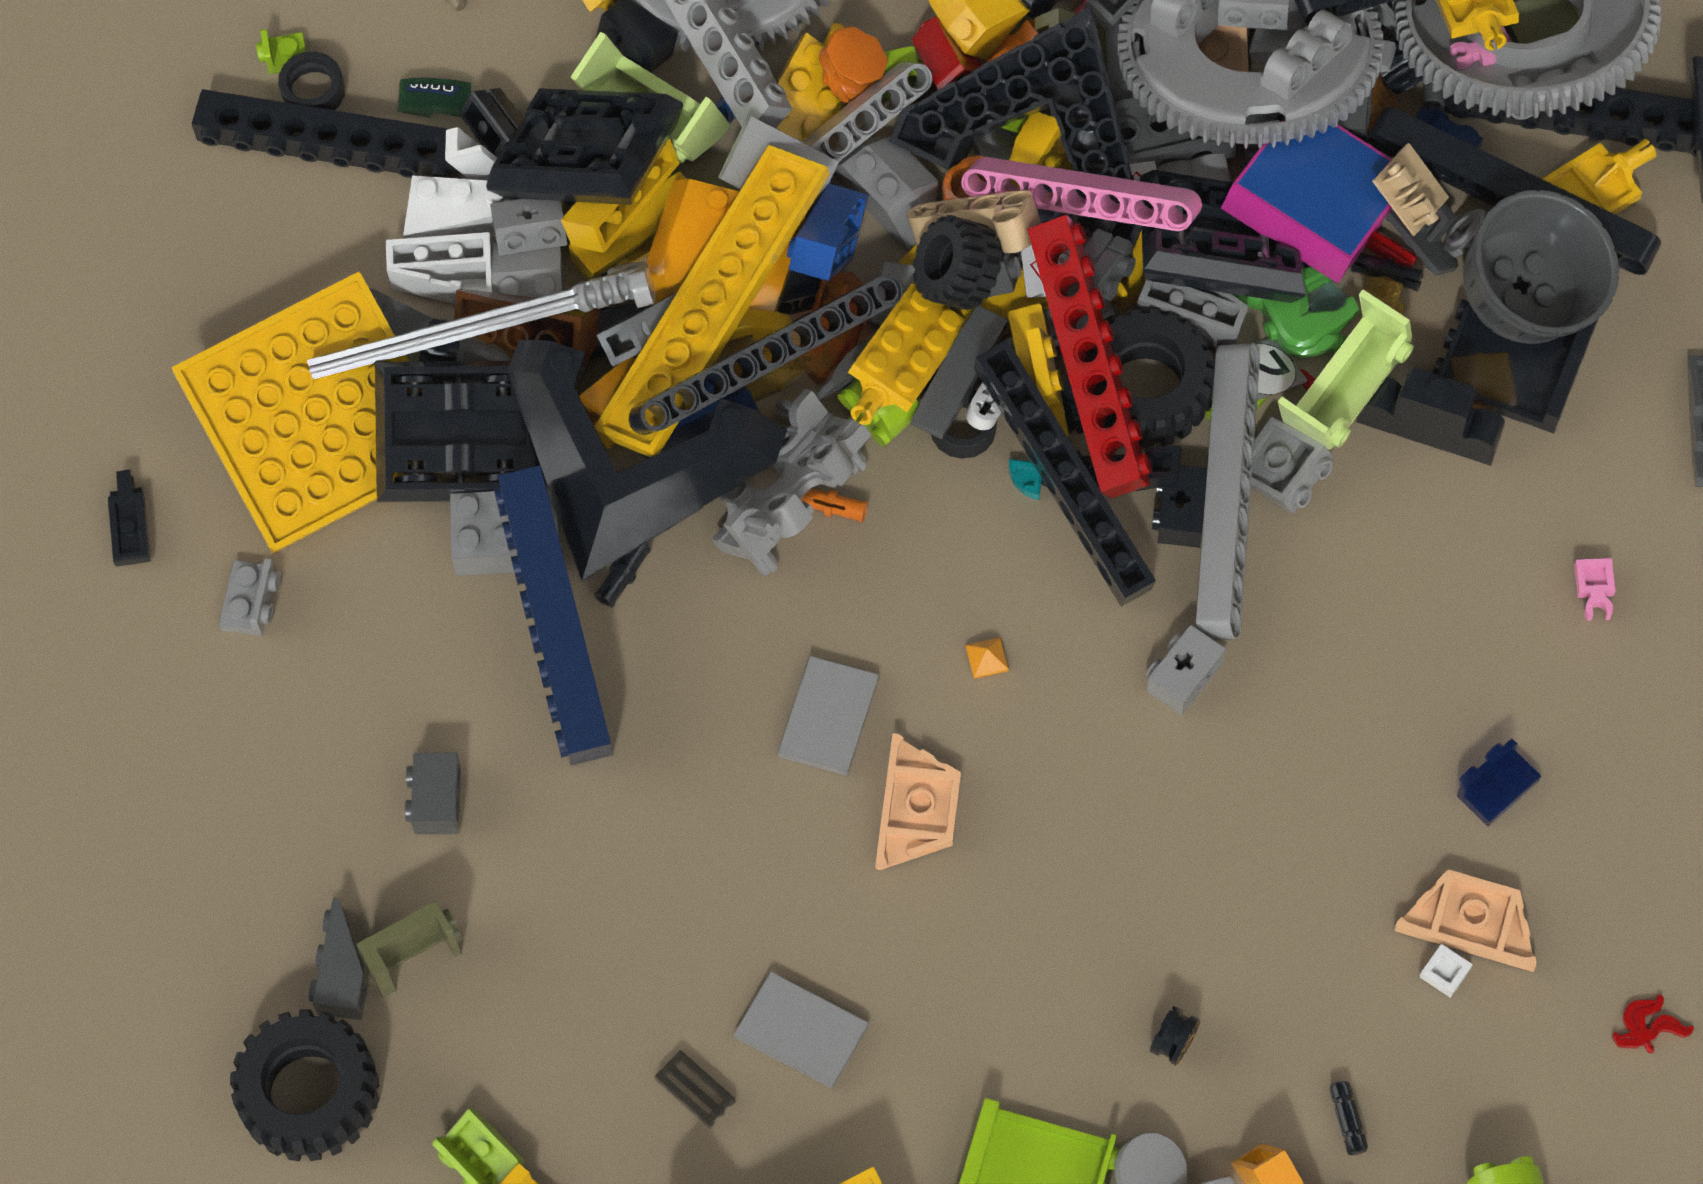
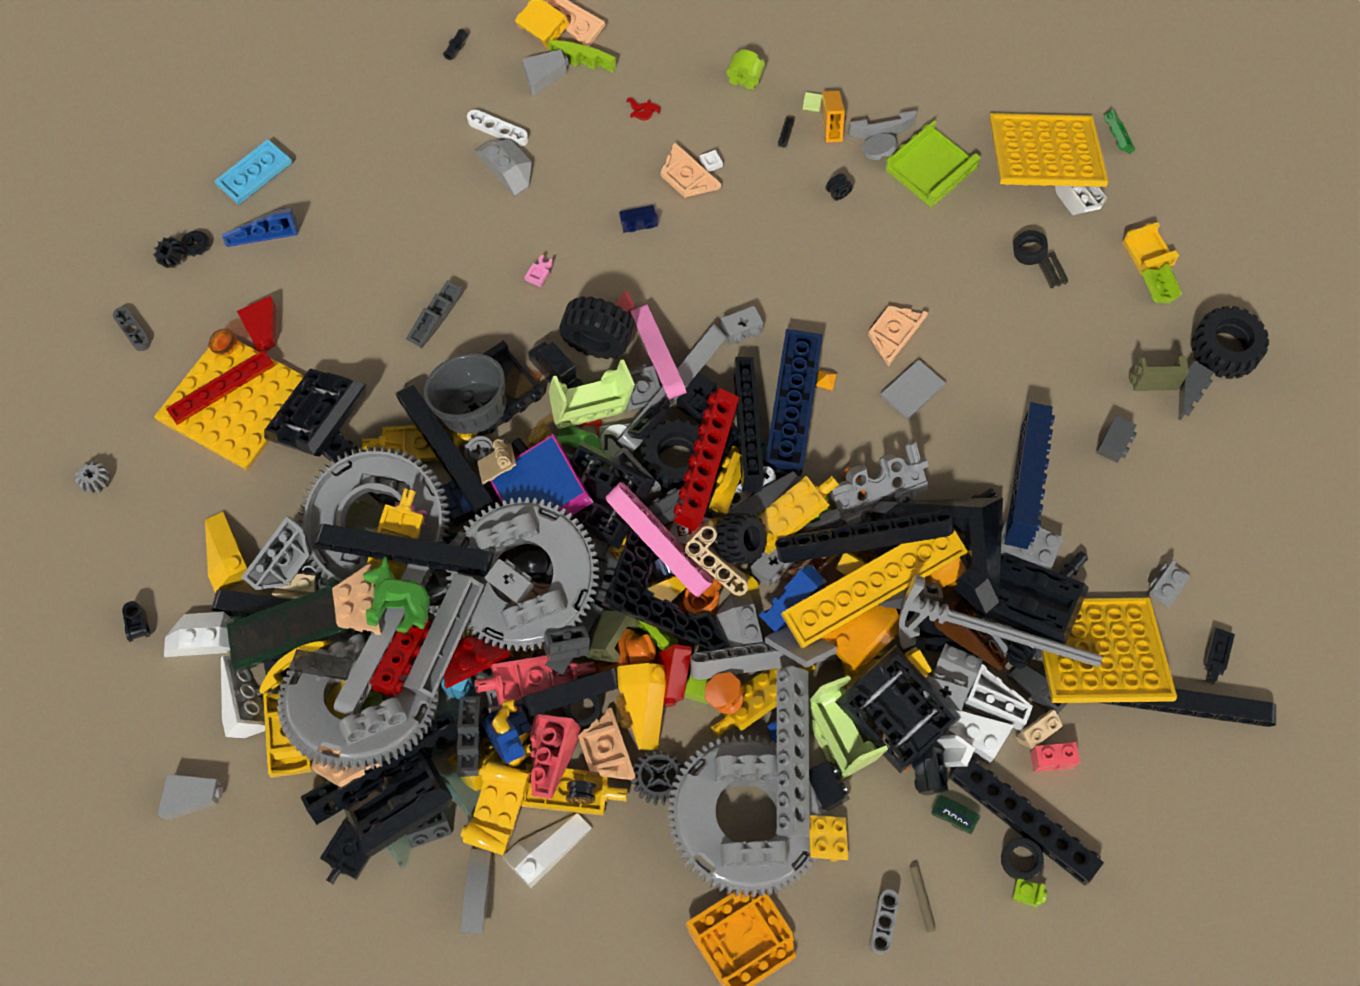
camera: 155 degrees left, 0 degrees up
(98, 437) = (1212, 707): none -> black beam
(322, 237) = (1055, 757): none -> coral brick
(364, 254) = (1039, 730): none -> tan bracket
(418, 538) = (1072, 568): none -> black pin
(774, 1080) = (1028, 237): none -> black tyre
(801, 1030) = (994, 269): light grey tile -> none
(1015, 572) = (793, 401): none -> dark blue brick
(1221, 386) = (650, 419): none -> black hinge
(1290, 522) = (658, 352): none -> bright pink beam
(1406, 607) = (625, 302): none -> coral slope
(1414, 492) = (596, 327): none -> black tyre

